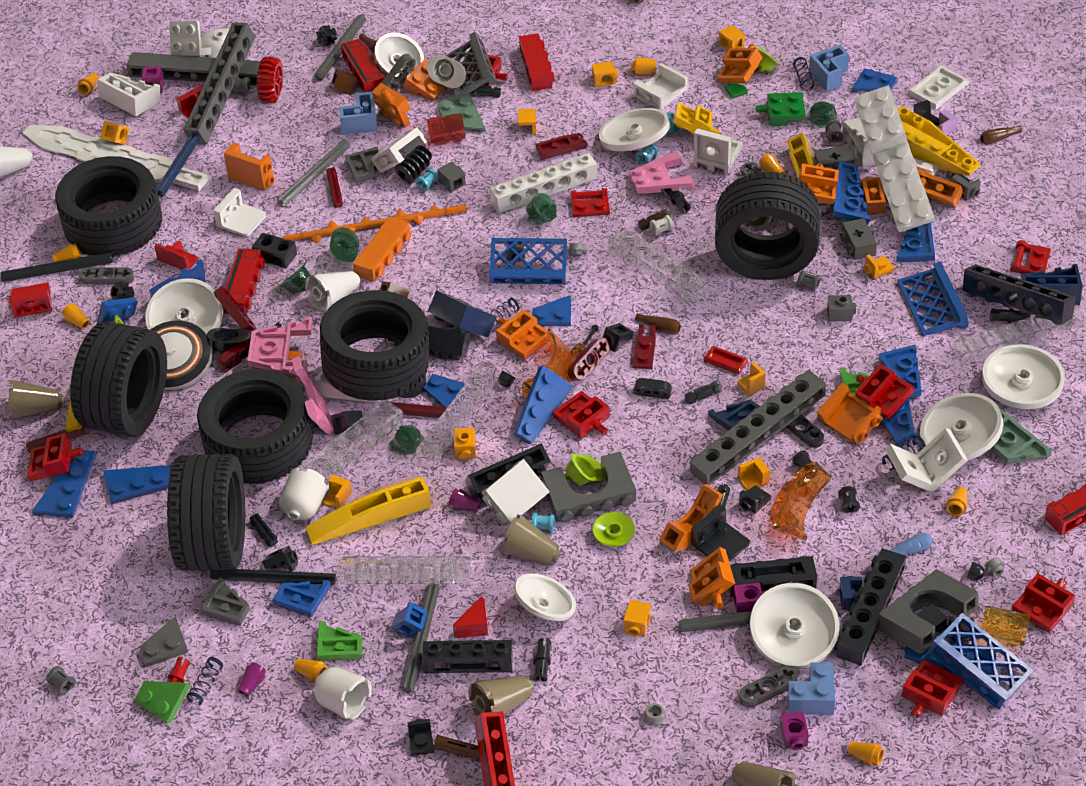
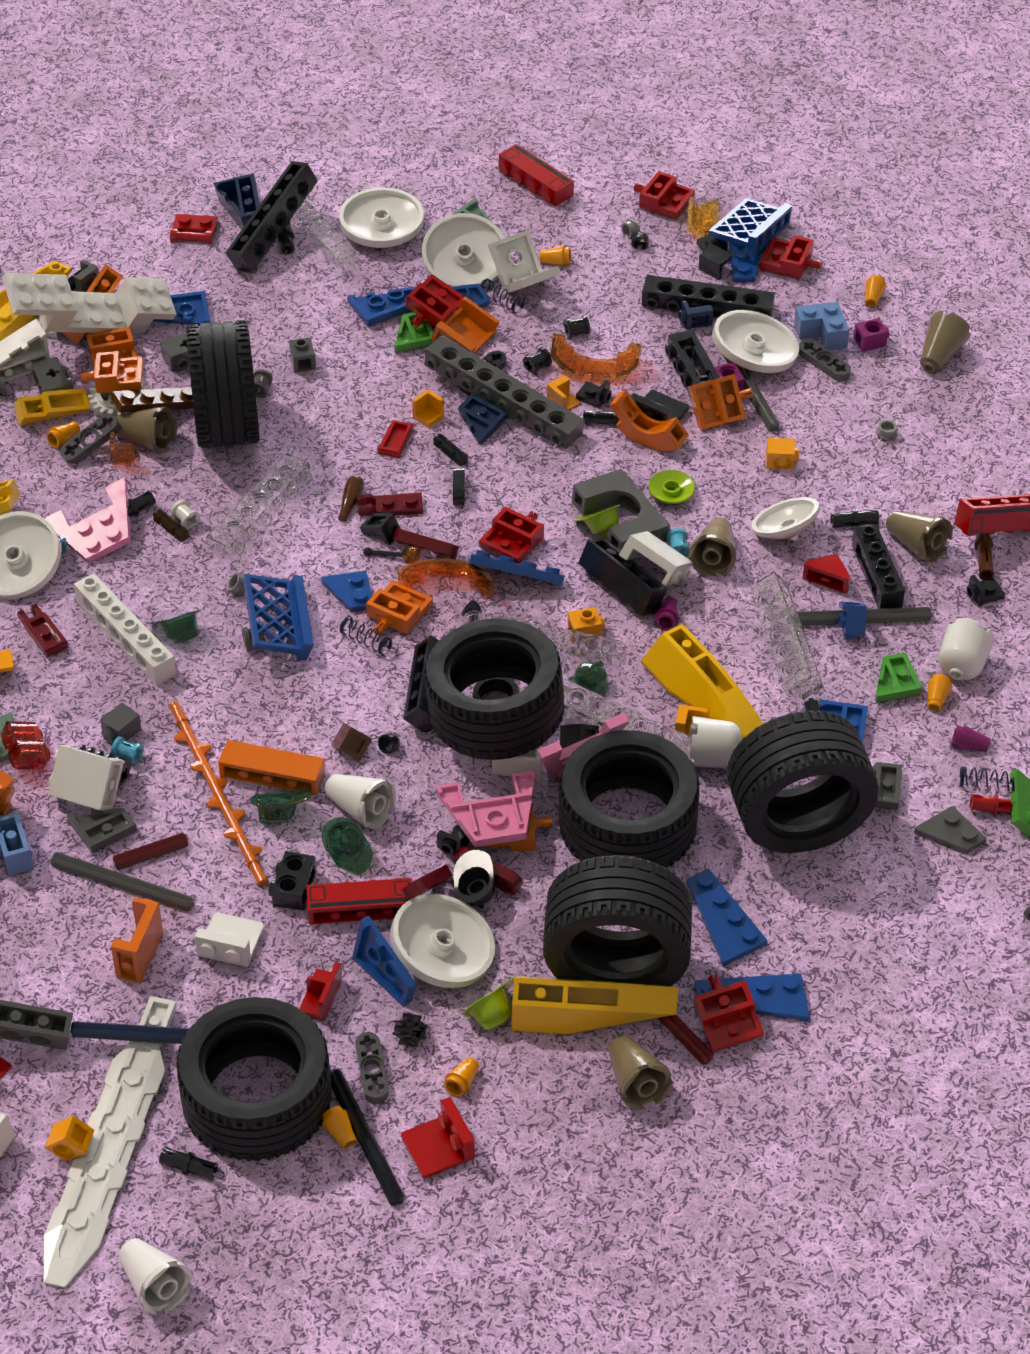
camera: 105 degrees left, 0 degrees up
(124, 308) = (455, 1022): blue wing -> none
(187, 353) = (506, 936): dish -> none
(461, 314) = (388, 658): dark blue wedge -> none
(590, 207) = (155, 585): red plate -> none
(715, 150) = (56, 474): white bracket -> none
(849, 196) = (85, 359): blue wing -> none
(914, 544) = (621, 284): medium blue piece -> none
(936, 589) = (684, 242): dark grey arch -> none
(946, 296) = (267, 278): blue fence -> none

